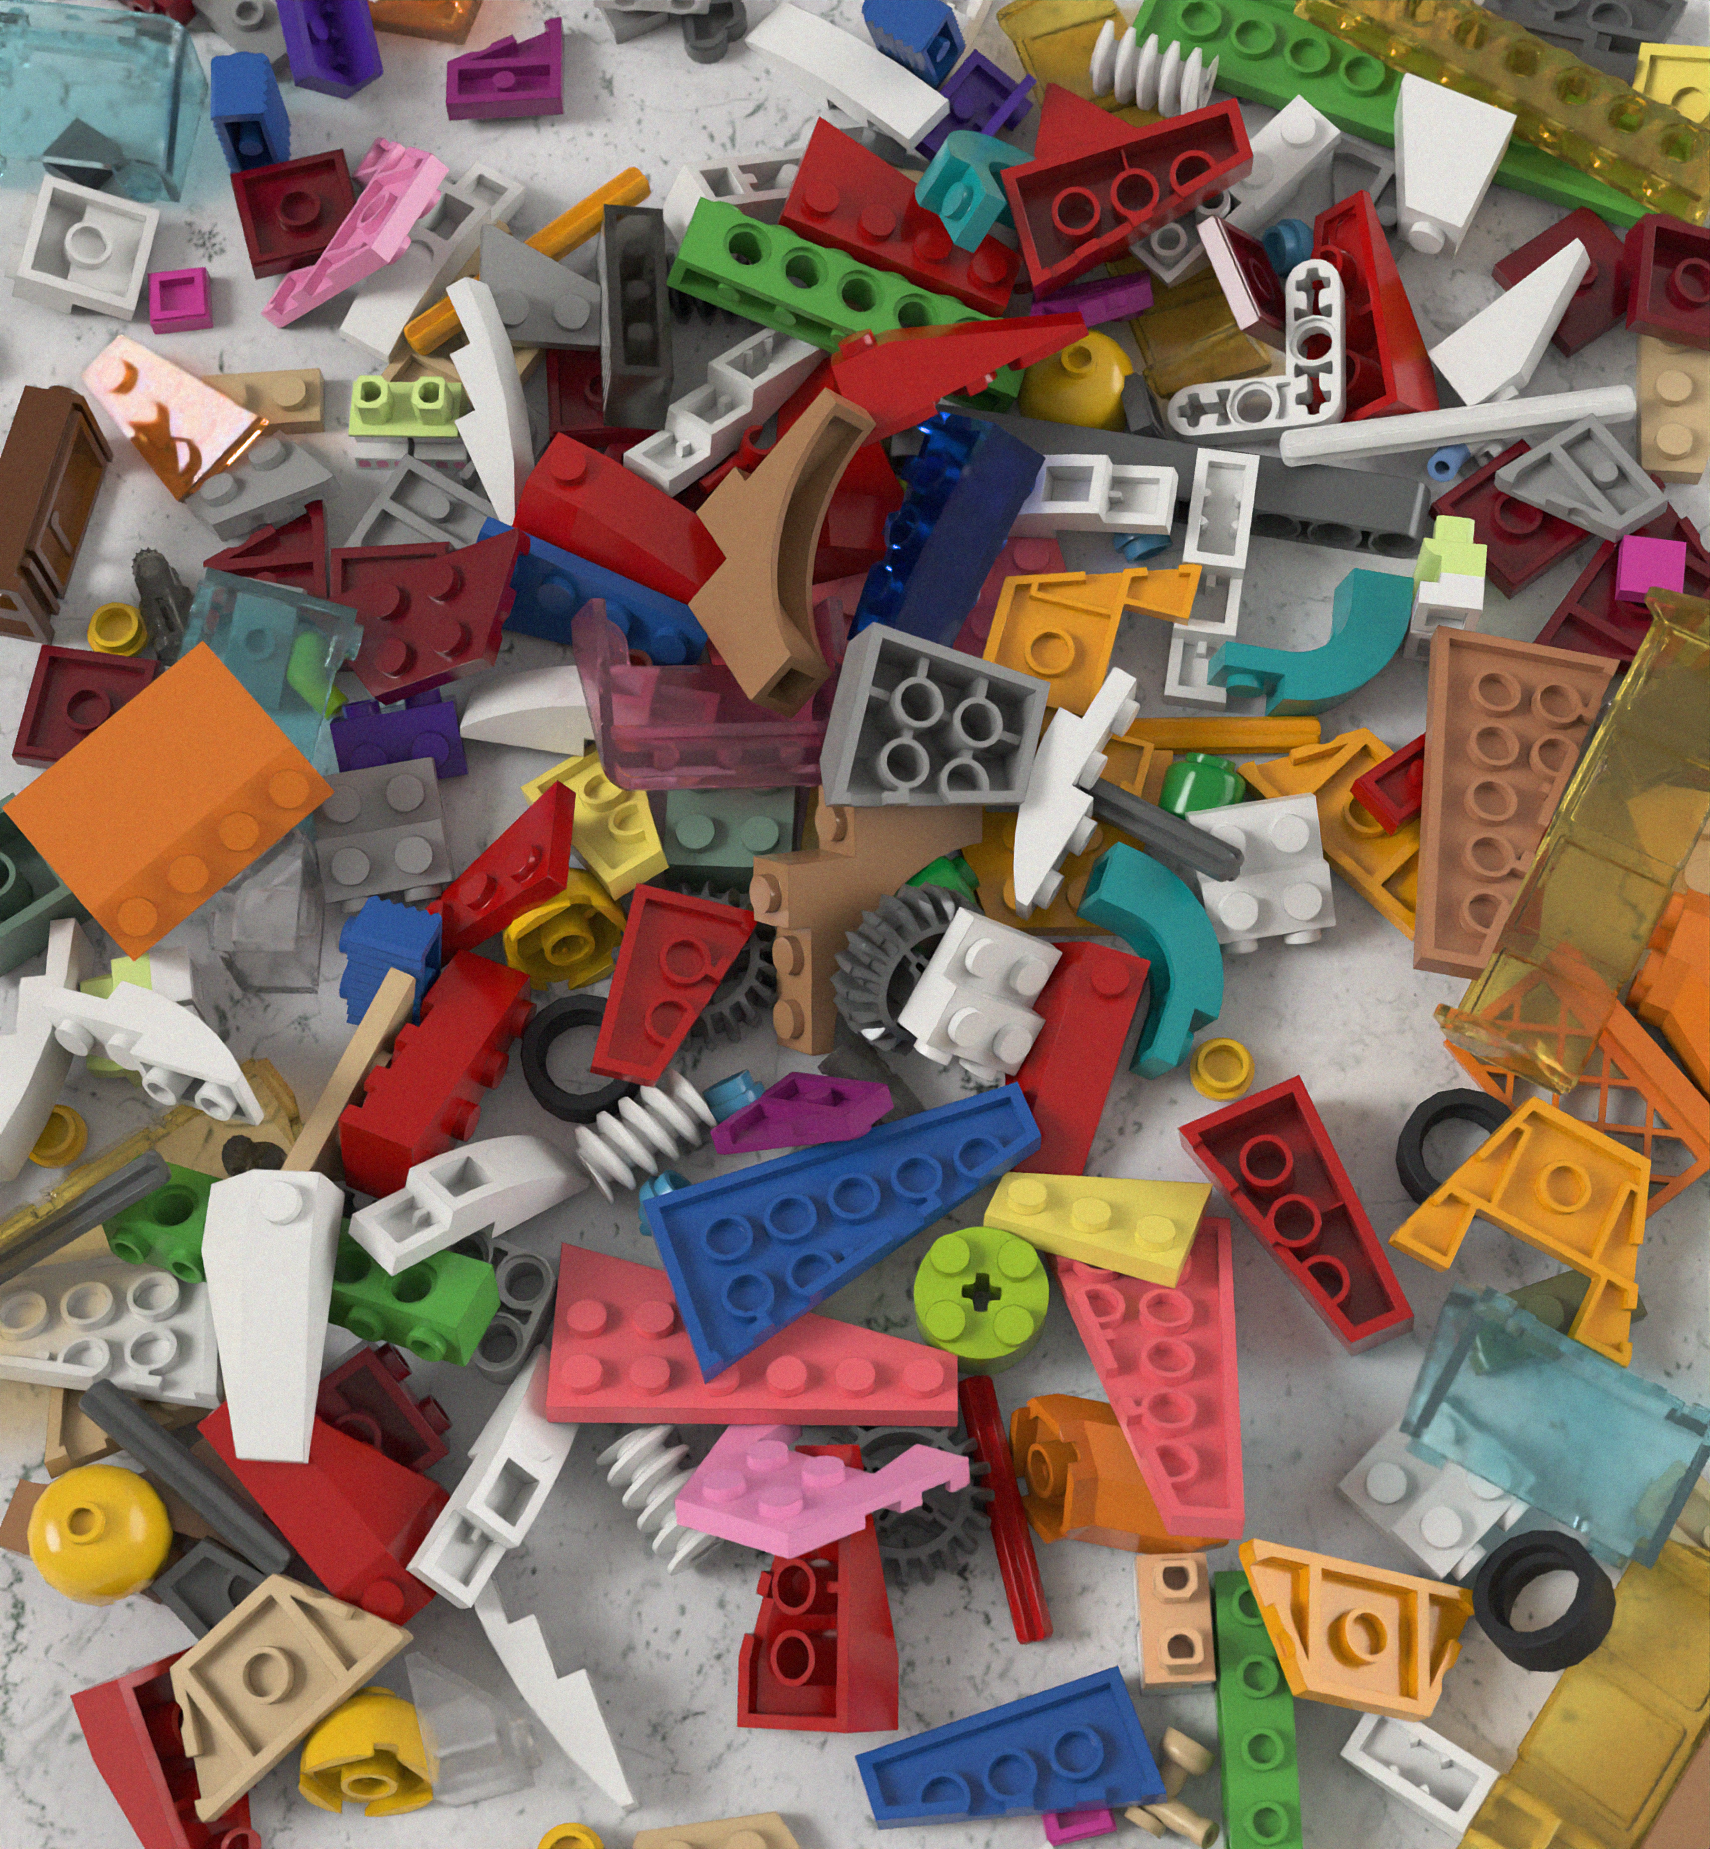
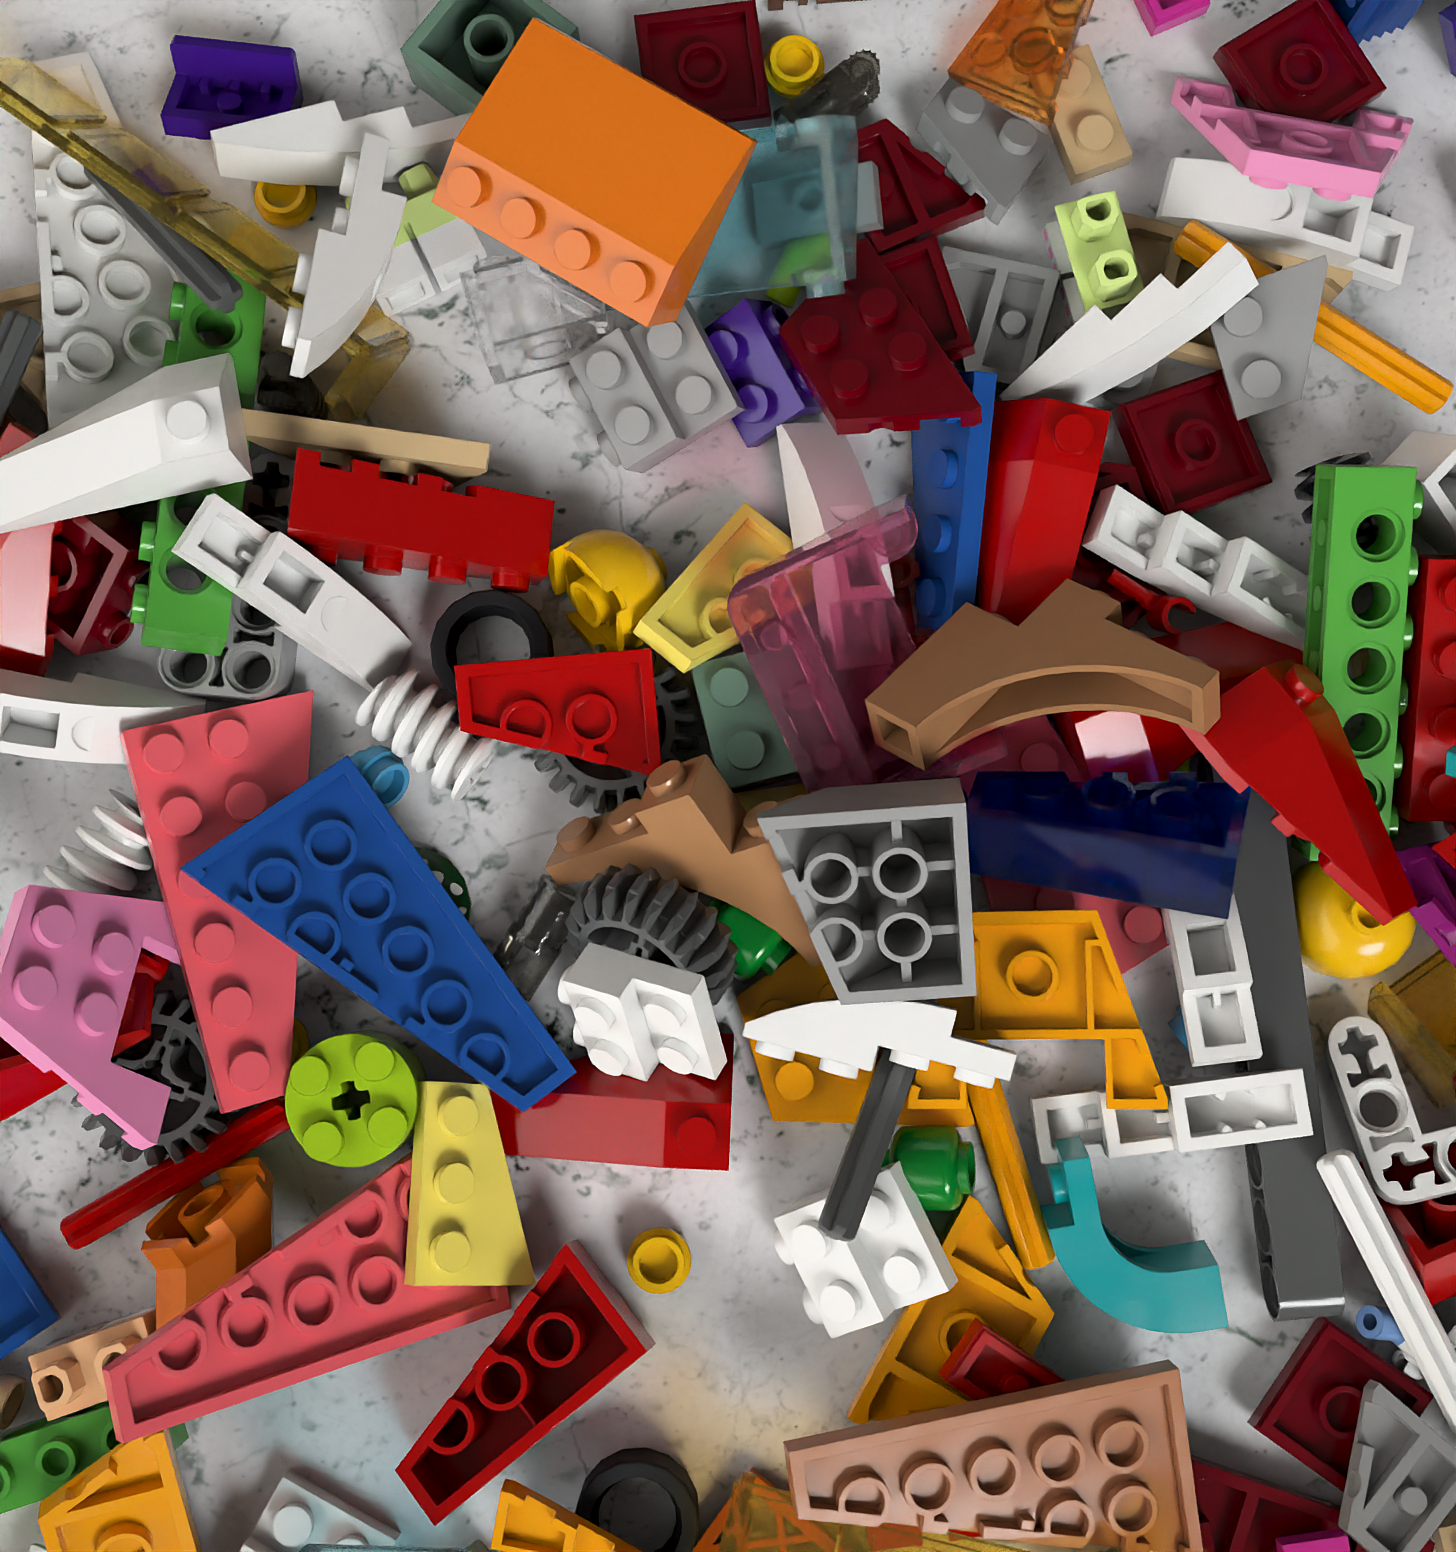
camera: 70 degrees right, 15 degrees up
(386, 938) = (522, 439): blue brick -> none
(510, 876) = (628, 522): red wing -> none
(634, 318) = (1275, 444): clear smoke brick -> none
(732, 1094) = (492, 807): dark azure plate -> none
(804, 1112) = (482, 878): magenta wing -> none
(1142, 408) = (1339, 993): dark grey tile -> none
(1169, 928) = (760, 1186): teal arch -> none
(1446, 584) = (1232, 1367): hips -> none

